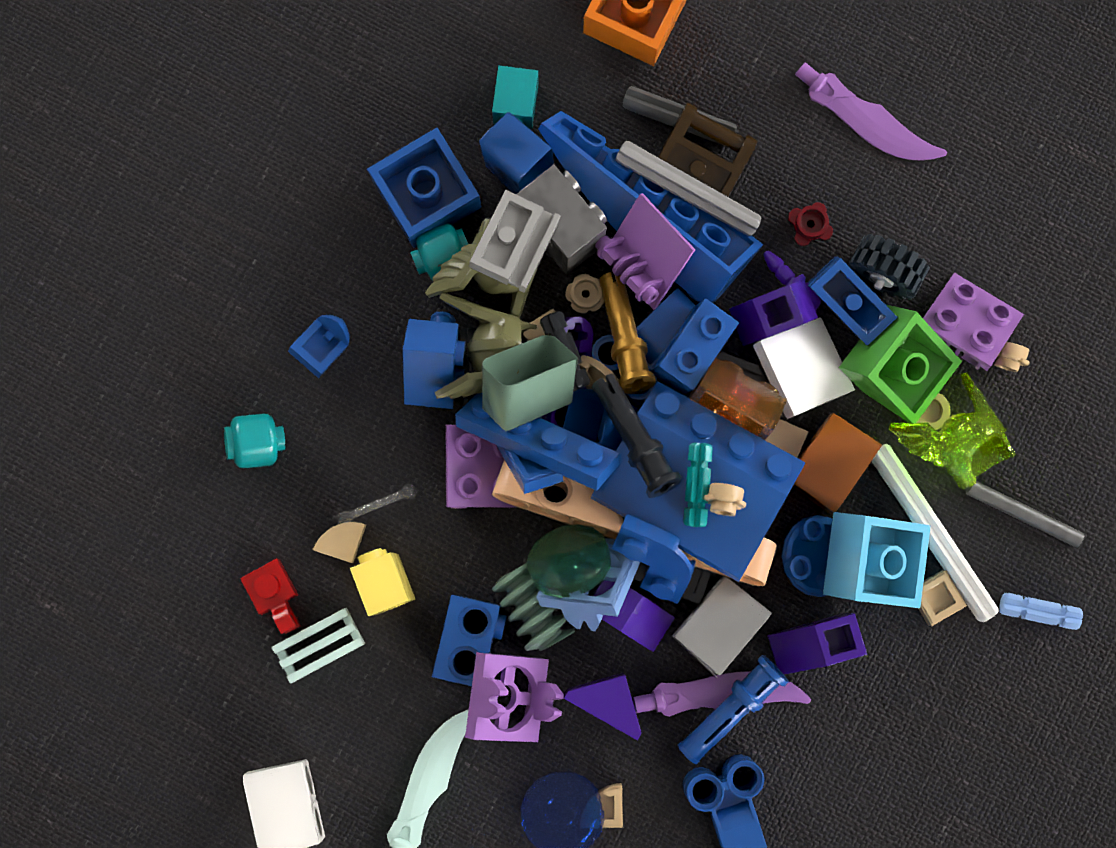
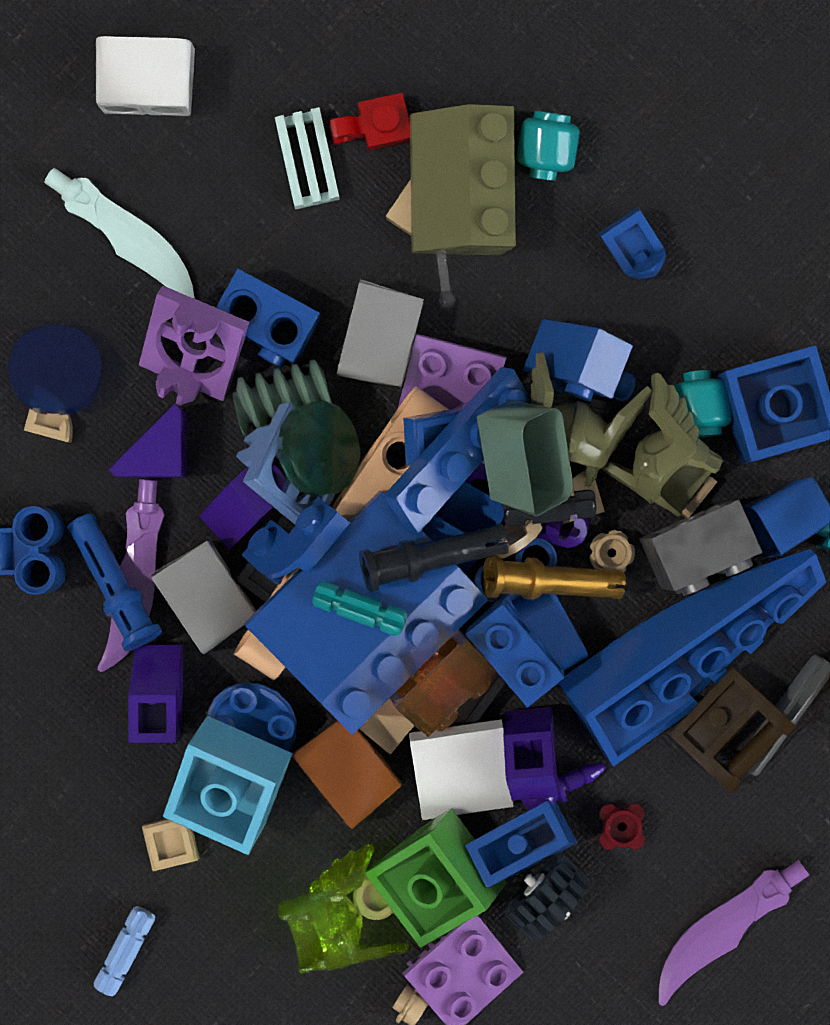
camera: 110 degrees right, 5 degrees up
(303, 503) = (463, 180): none -> olive slope
(381, 581) = (353, 241): light yellow brick -> none
(456, 538) = (379, 335): none -> light grey piece
(514, 241) = (685, 483): light grey plate -> none
(646, 252) = (635, 628): medium lavender hinge -> none
(688, 188) = (698, 699): light grey axle -> none
(725, 499) = (334, 632): tan plate -> none
(939, 539) = (234, 862): white axle -> none
(1026, 514) = (233, 968): flat silver bar -> none

